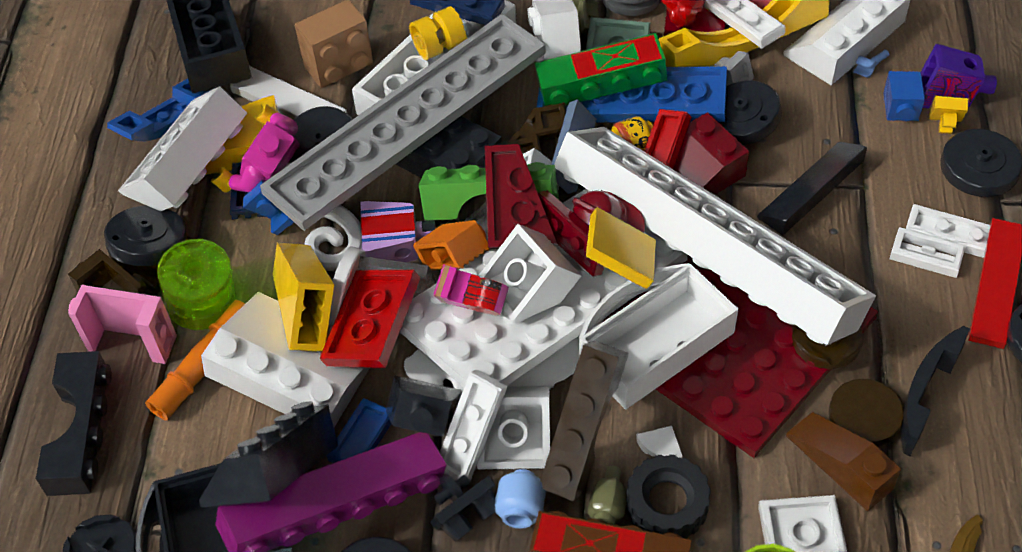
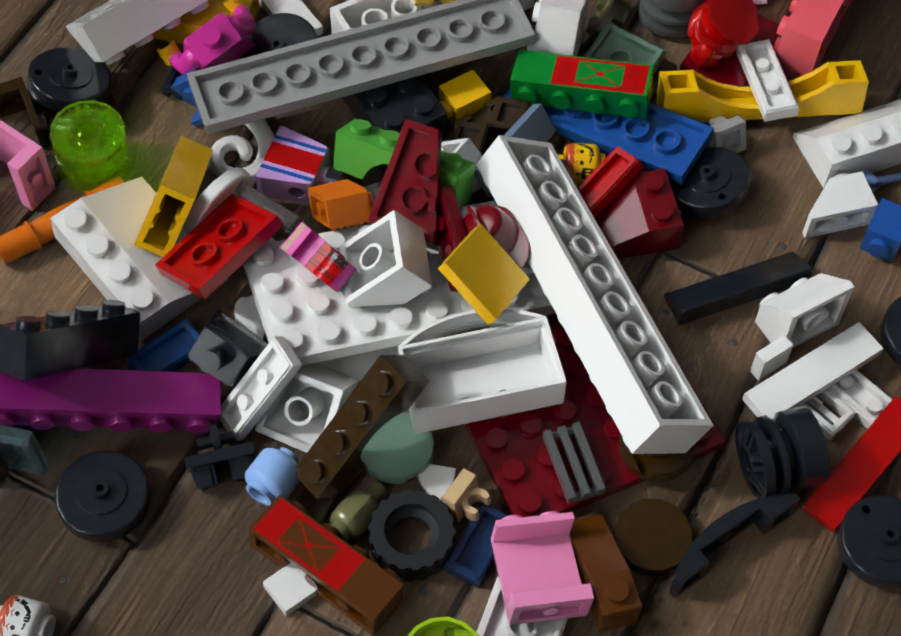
camera: 20 degrees right, 5 degrees up
(504, 118) = (463, 96): none -> yellow brick
(620, 434) = (397, 451): none -> sand green tile
(694, 442) = (463, 494): none -> tan tile
(728, 481) = (474, 551): none -> dark blue tile
(774, 373) = (564, 434): none -> dark grey tile
(793, 478) = (539, 568): none -> bright pink panel
(857, 90) = (842, 205): none -> white slope
(875, 229) = (771, 357): none -> white tile
(879, 181) = (804, 309): none -> white slope
(915, 229) = (814, 372): none -> white tile
(934, 298) = (782, 452): none -> black wheel

